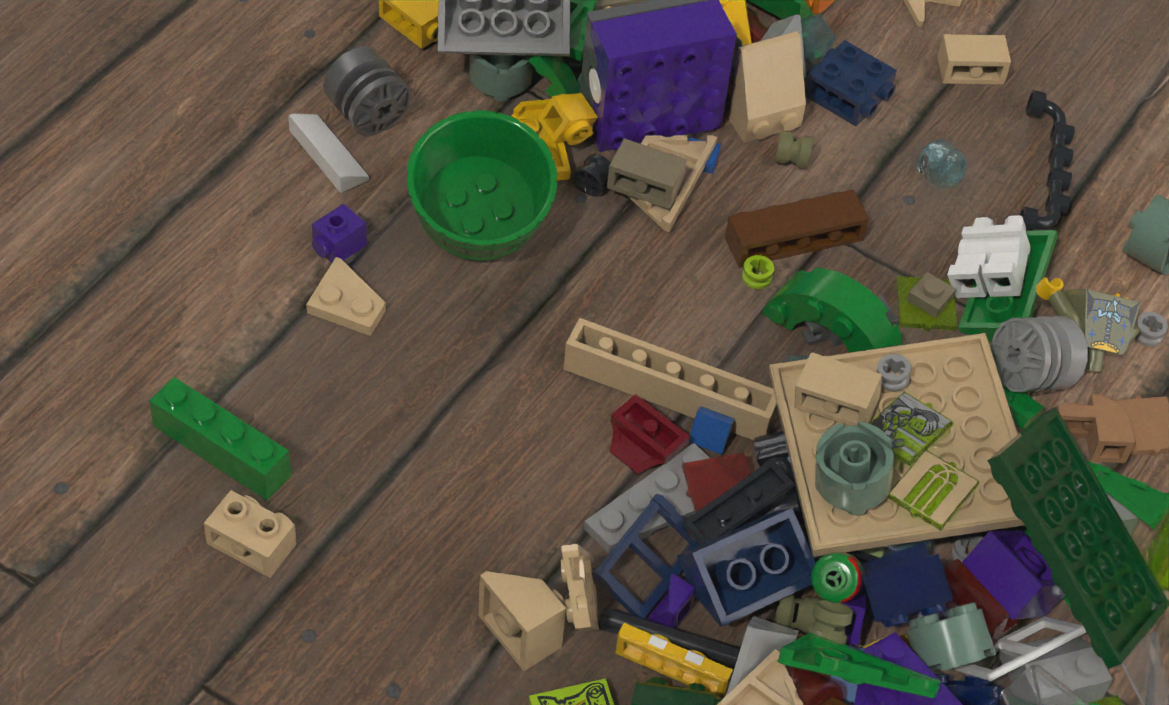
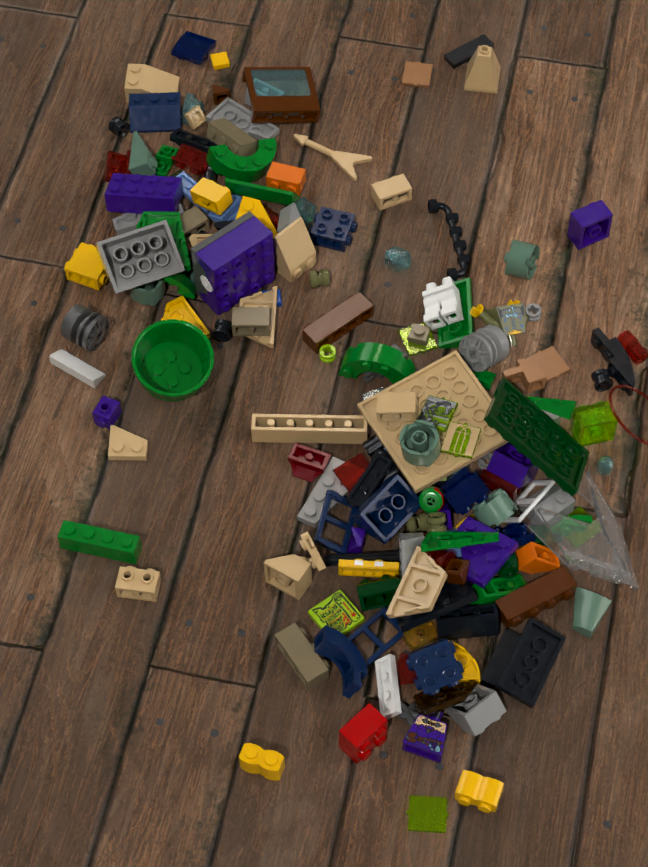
camera: 15 degrees left, 5 degrees up
(568, 118) = (197, 305): yellow brick -> none
(711, 430) = (339, 446): blue tile -> none
(896, 363) = (419, 382): light grey bush -> none

